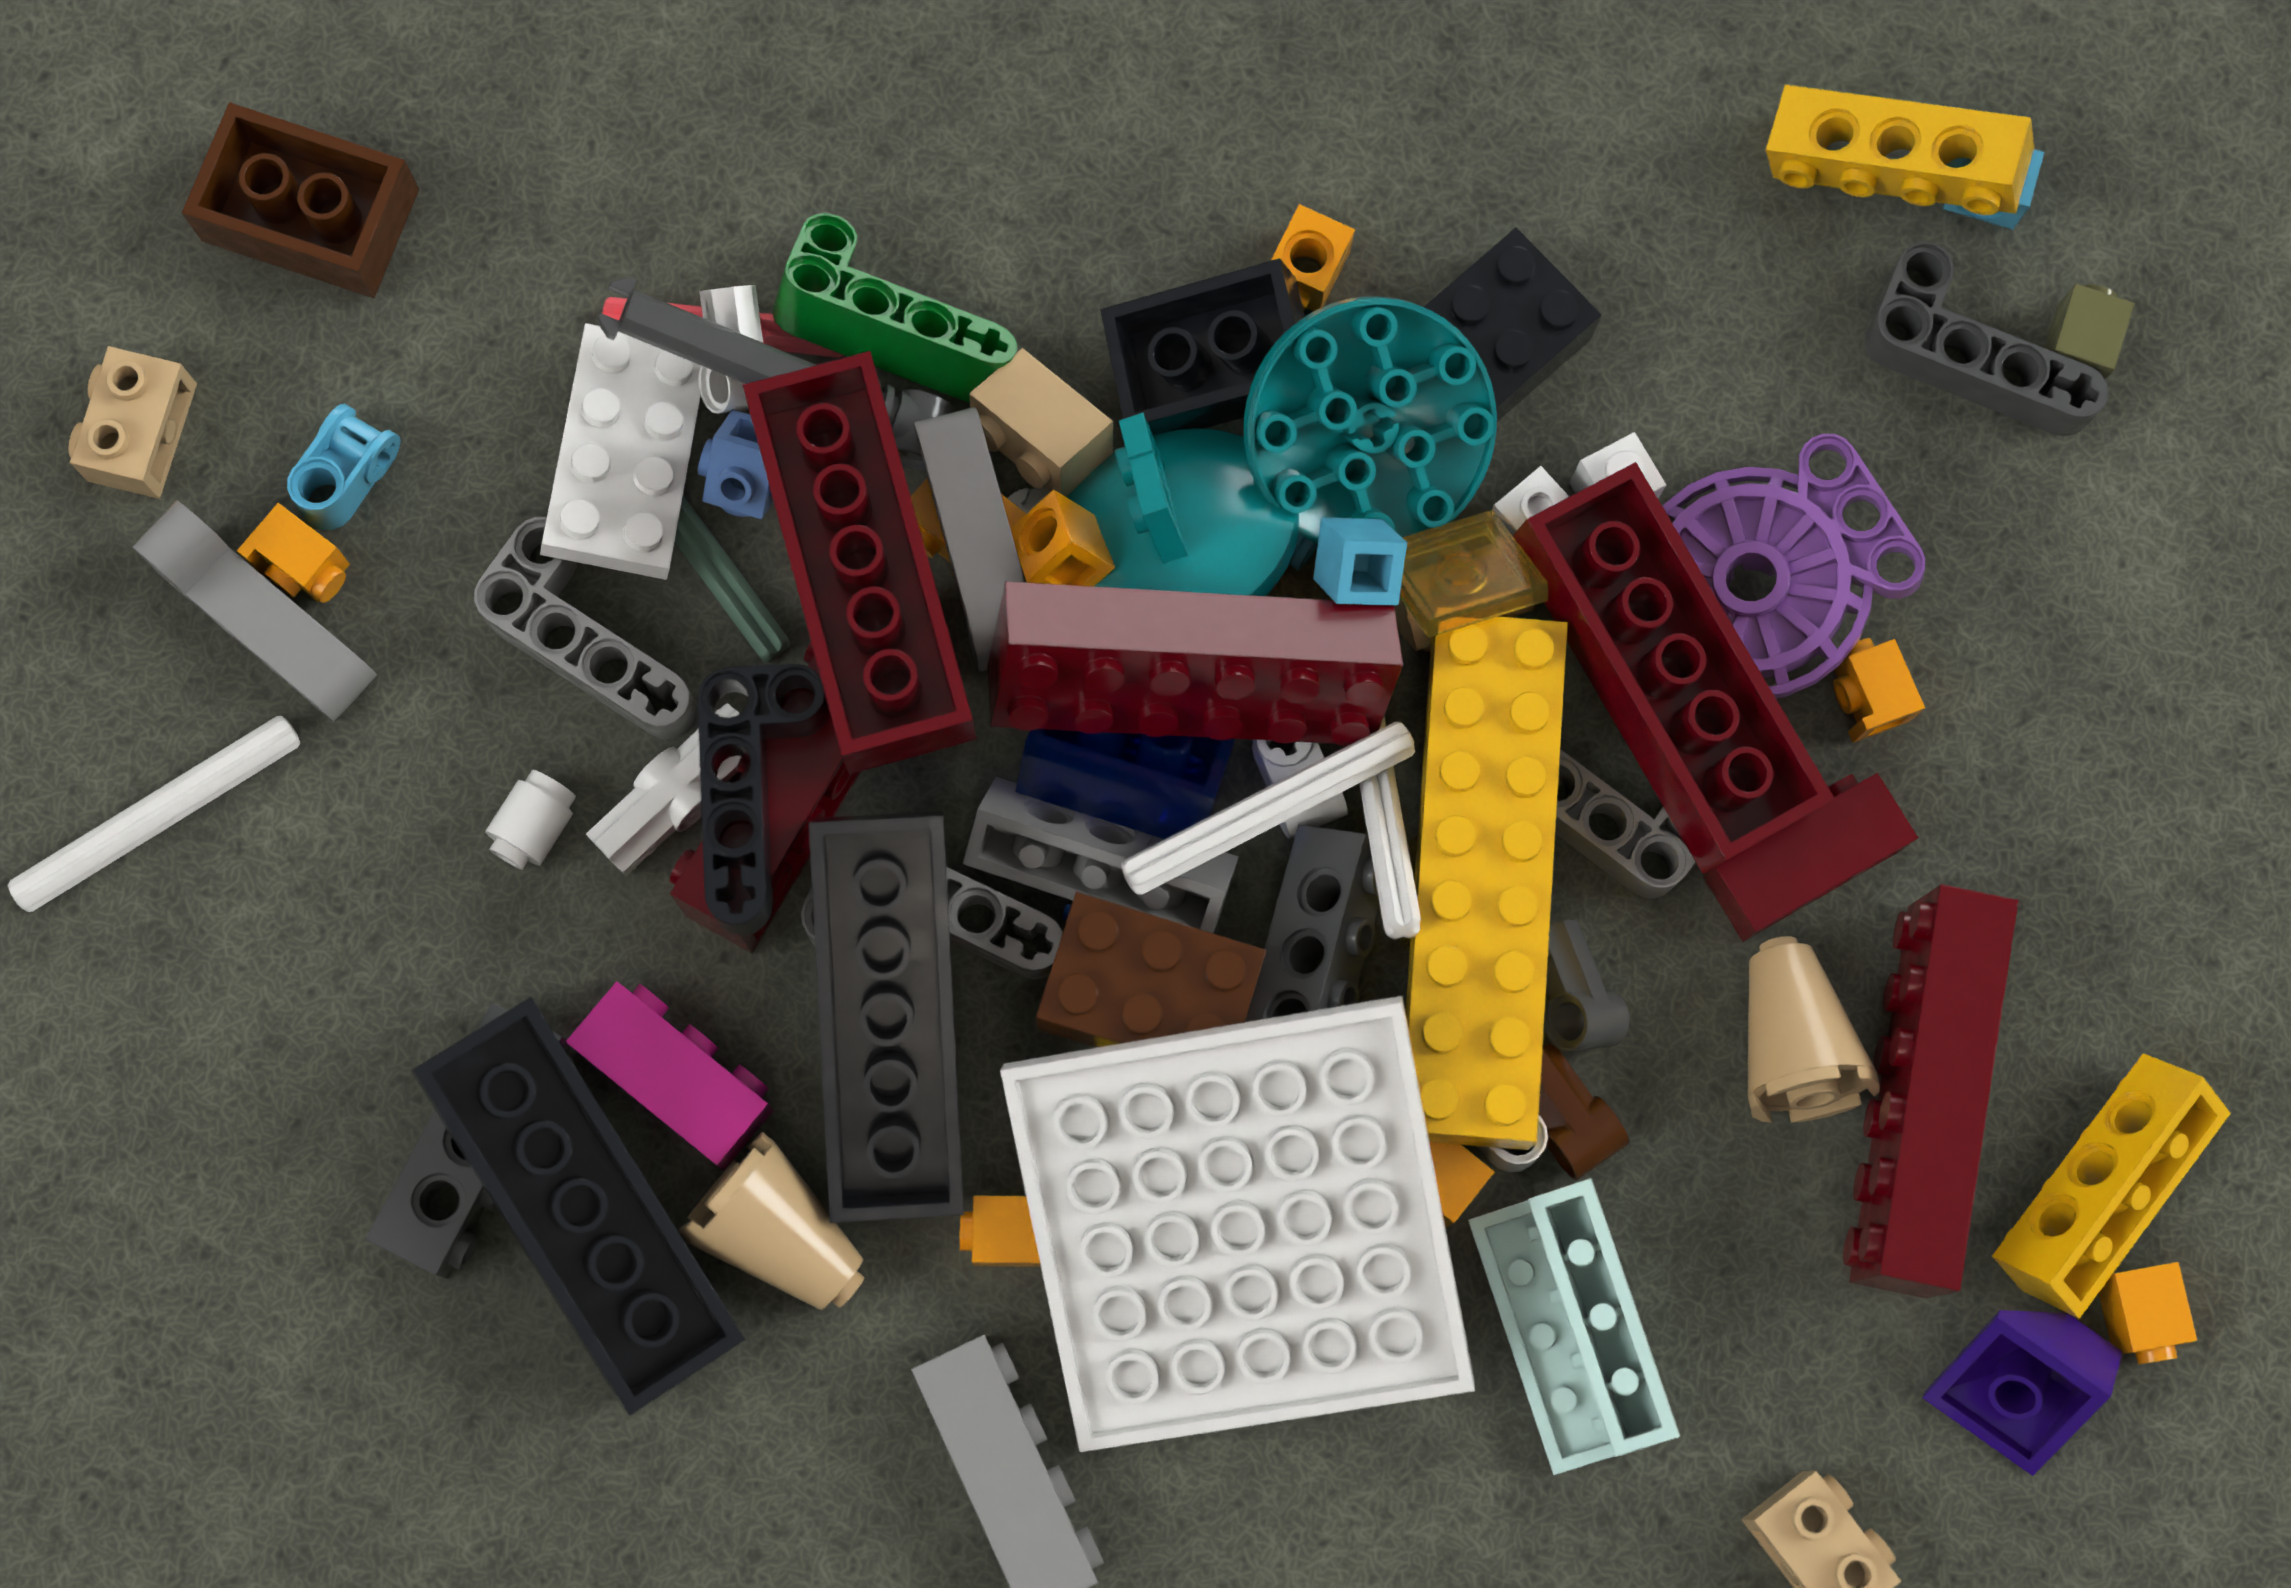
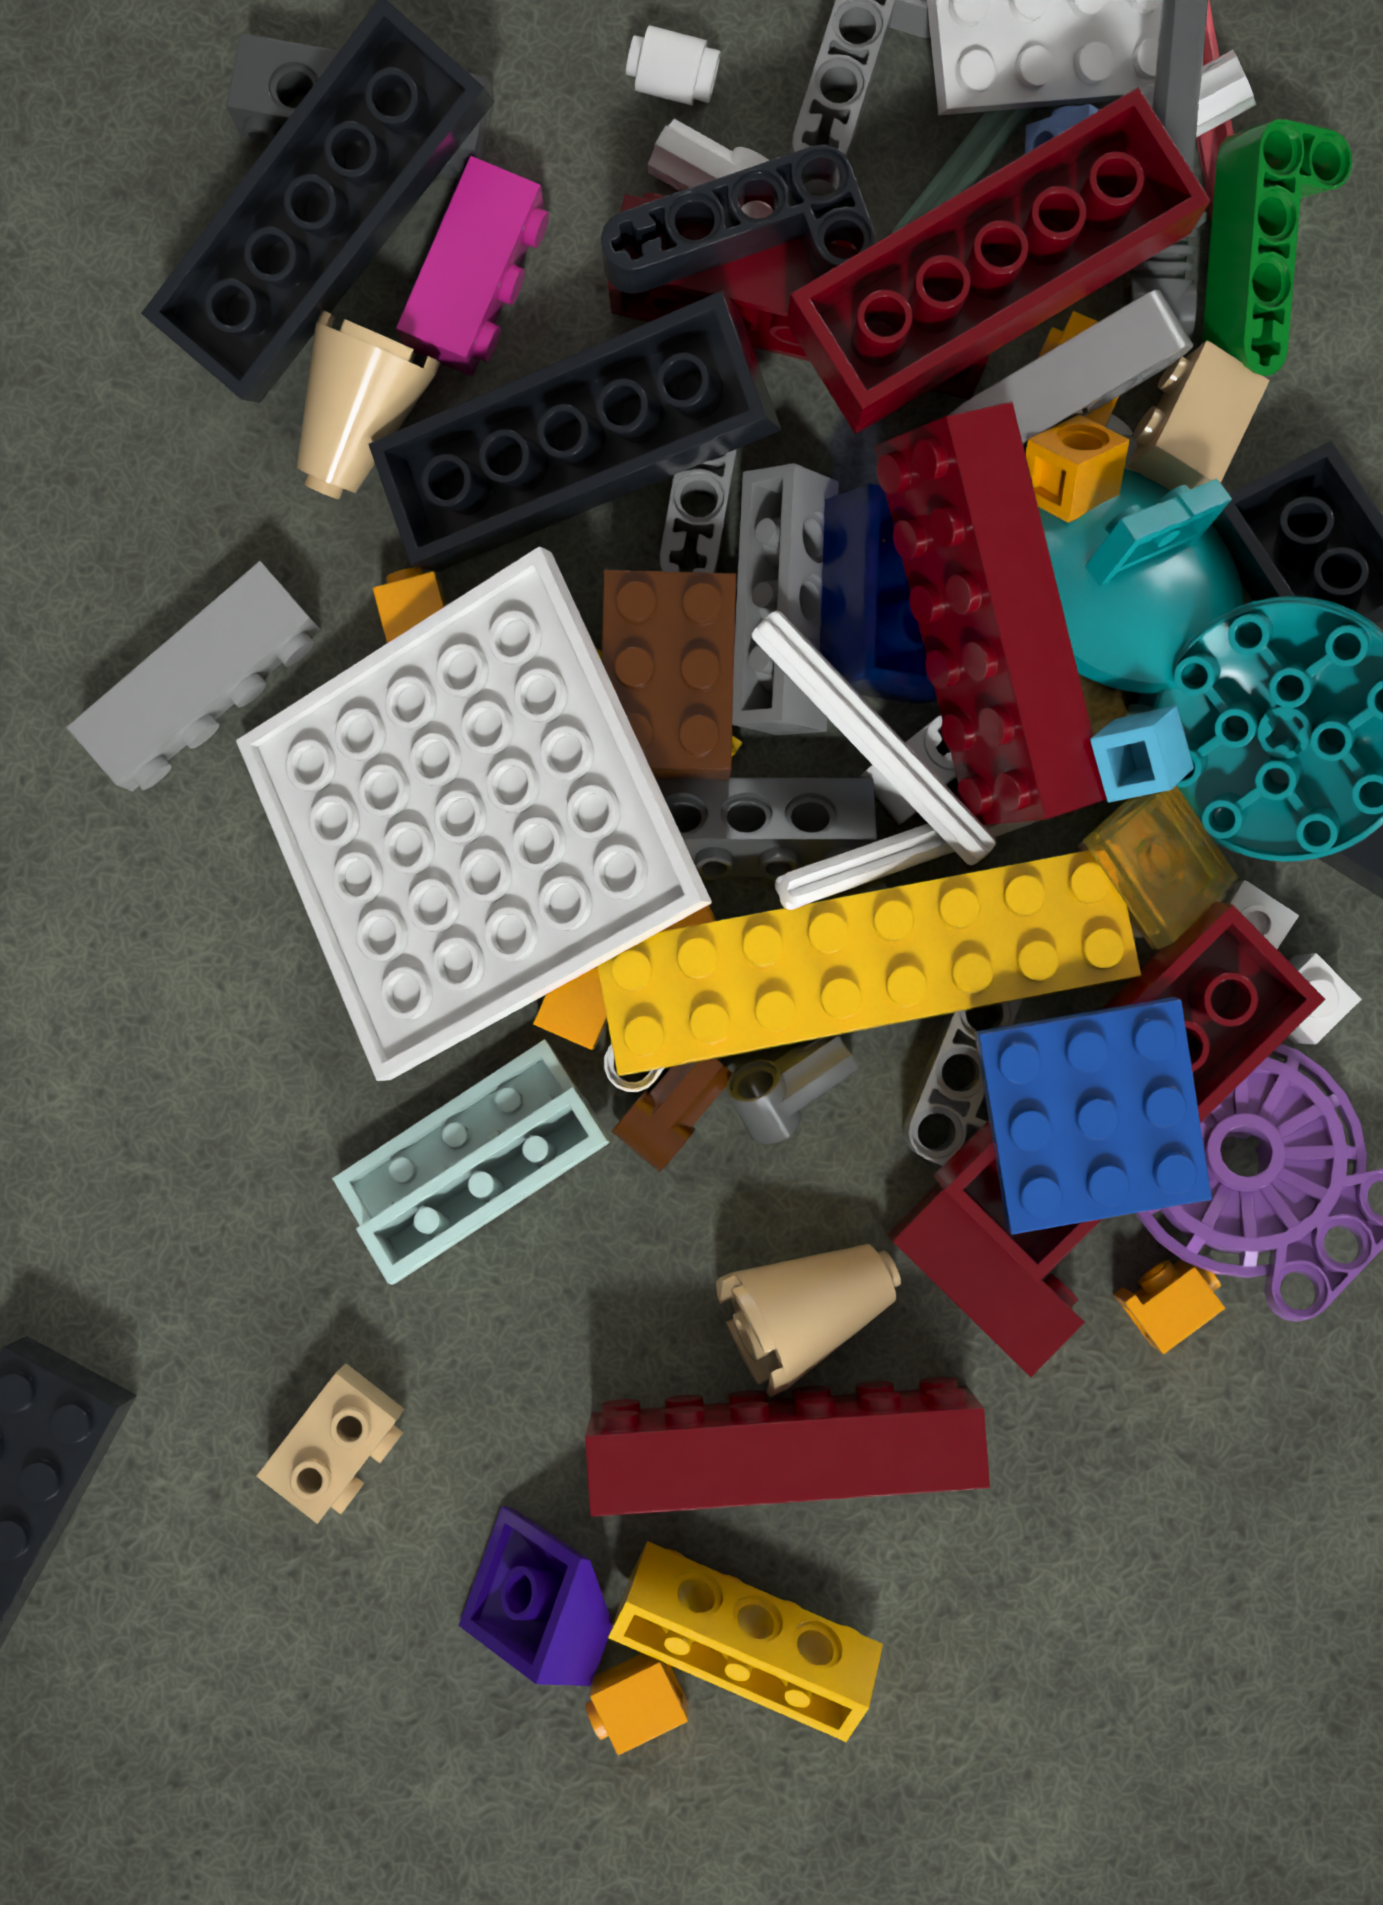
camera: 80 degrees right, 10 degrees up
(1691, 701) = (1093, 1115): none -> blue plate

